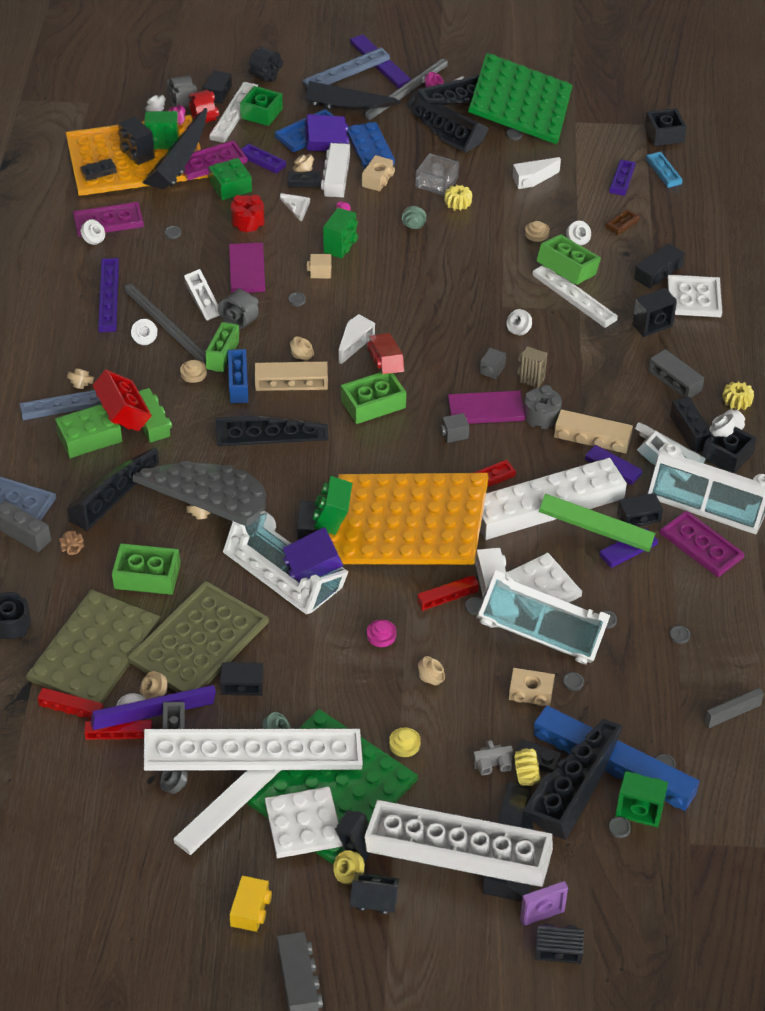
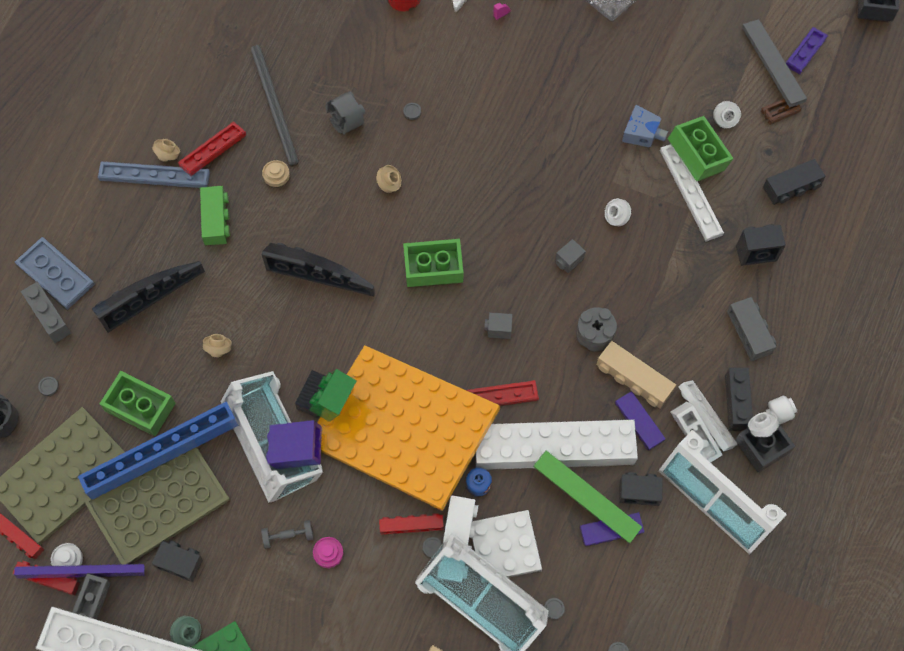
camera: 20 degrees right, 20 degrees up
(48, 585) = (48, 386): none -> dark grey piece
(71, 542) = (83, 347): medium nougat gear -> none
(87, 431) = (149, 216): bright green brick -> none
(108, 295) = (234, 51): dark purple tile -> none
(121, 400) = (185, 199): red brick -> none
(130, 360) = (212, 148): none -> red tile
(144, 332) = (246, 111): white plate -> none
(153, 685) = (93, 543): tan plate -> none
(186, 593) = (158, 451): none -> blue brick
(202, 294) = (319, 81): white slope -> none
(209, 487) = (233, 329): dark grey plate -> none
(225, 339) = (311, 155): bright green brick -> none
(238, 376) = (313, 195): blue brick -> none
(247, 267) = (378, 57): magenta tile -> none
(291, 376) = (366, 209): tan brick -> none
(319, 266) = (448, 78): tan brick -> none
(319, 638) = (287, 534): none -> dark grey wheel
(340, 233) = (482, 45): green brick -> none
(355, 336) = (449, 177): white slope -> none
(385, 353) = (463, 217): red brick -> none
(414, 217) = (566, 45): sand green plate -> none
(431, 671) = (355, 616): tan plate -> none
(458, 197) = (622, 30): light yellow gear -> none
(488, 406) = (543, 307): magenta tile -> none
(494, 539) = (478, 481): none -> blue head
(511, 260) = (643, 128): none -> sand blue torso
(532, 367) = (605, 276): dark tan brick -> none
(535, 172) = (714, 19): white slope -> none
(537, 231) = (686, 98): tan plate -> none
(600, 190) = (774, 63): none -> dark grey tile
(664, 169) = (855, 52): dark azure tile -> none
(696, 295) = (815, 231): white plate -> none
(702, 543) = (688, 549): magenta tile -> none
(738, 395) = (796, 376): light yellow gear -> none

